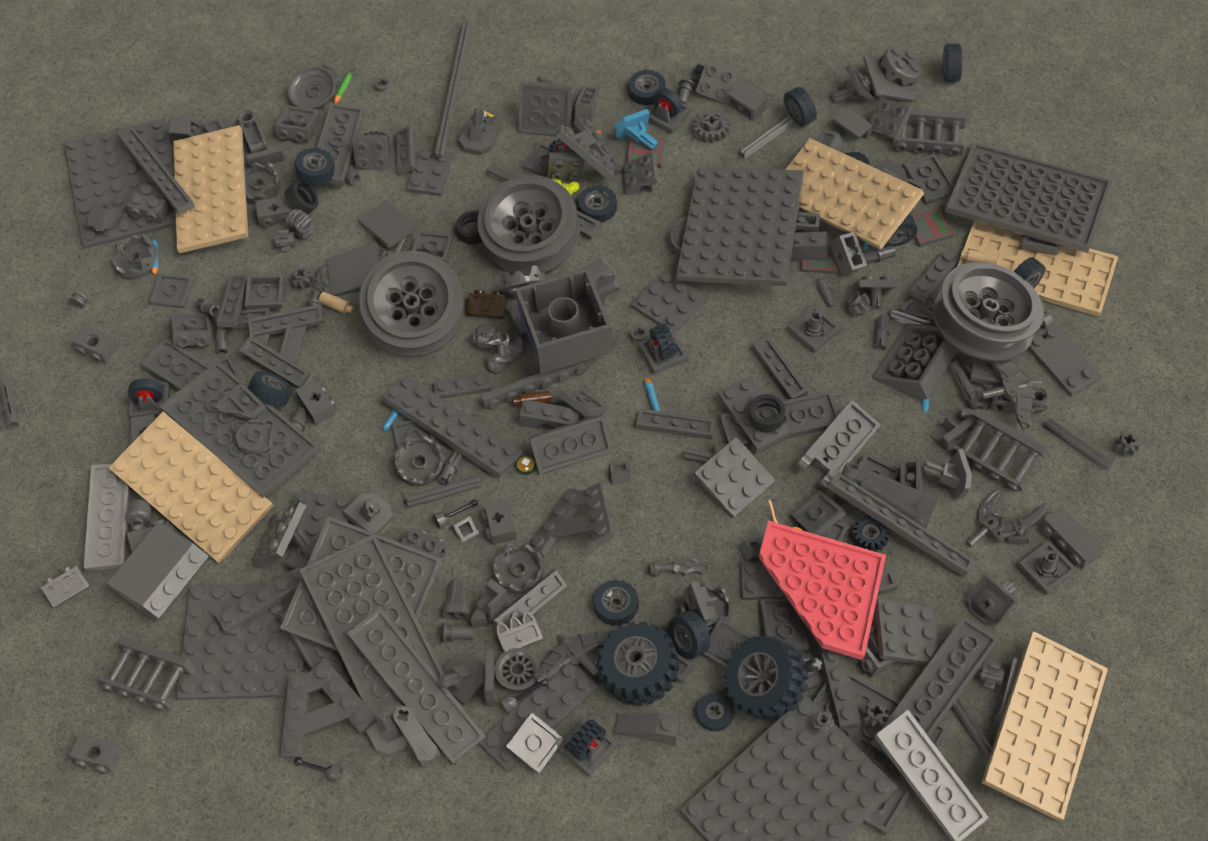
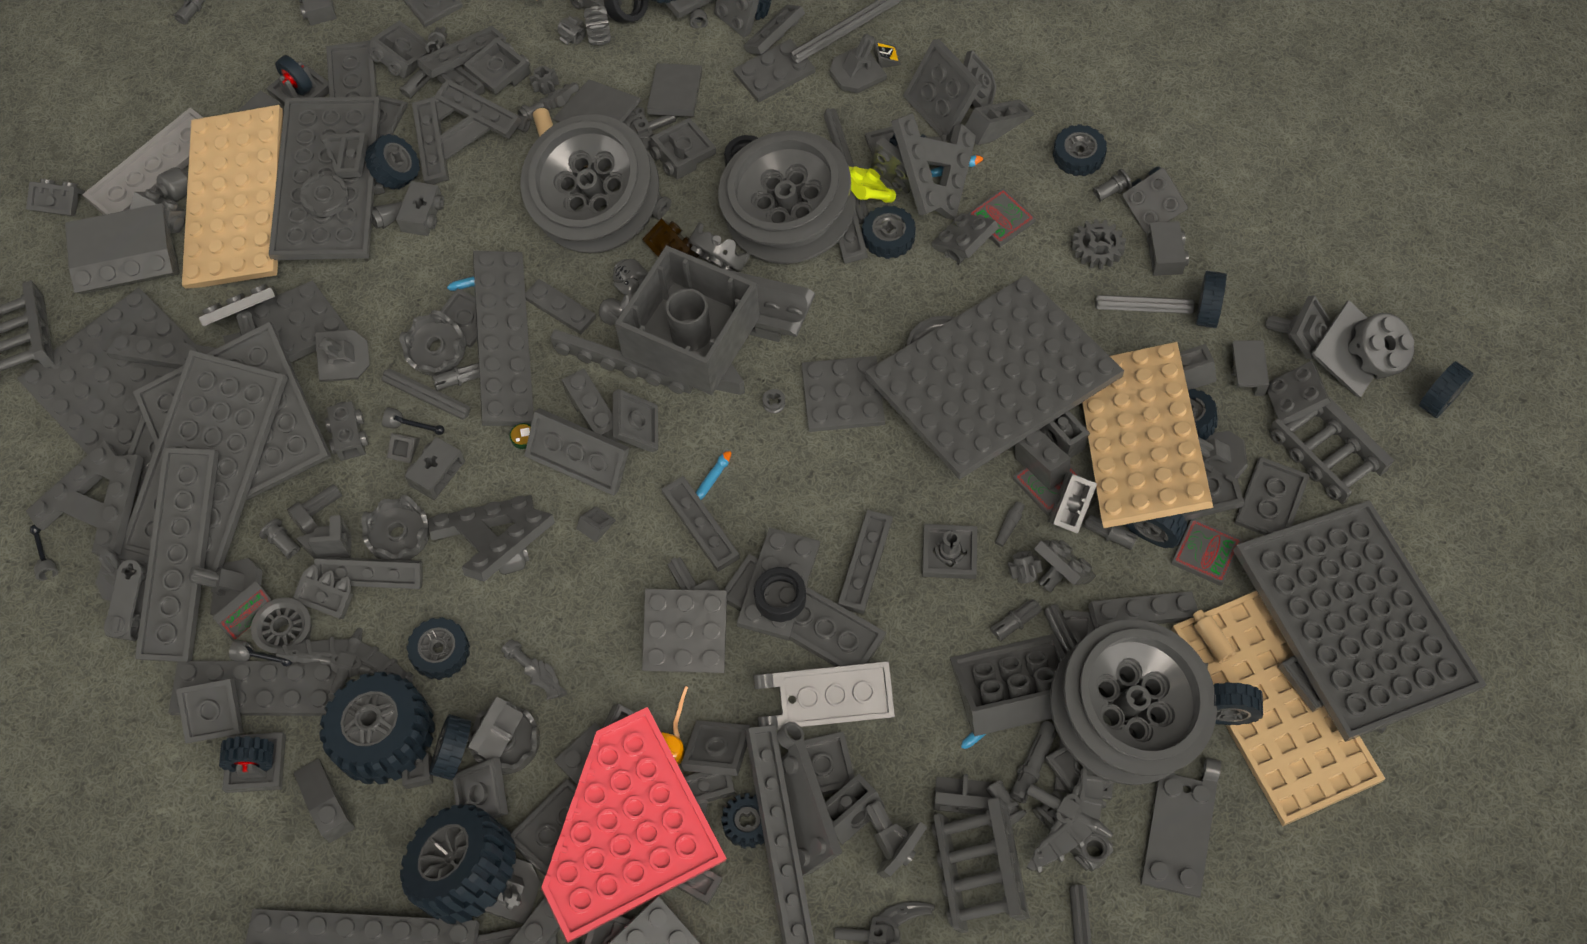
camera: 45 degrees right, 5 degrees up
(544, 397) = (601, 376): reddish brown cylinder -> none
(635, 128) = (1013, 181): dark azure piece -> none
(662, 349) = (775, 436): plate -> none
(668, 110) = (1070, 192): plate -> none
(725, 712) = (385, 839): black bush -> none

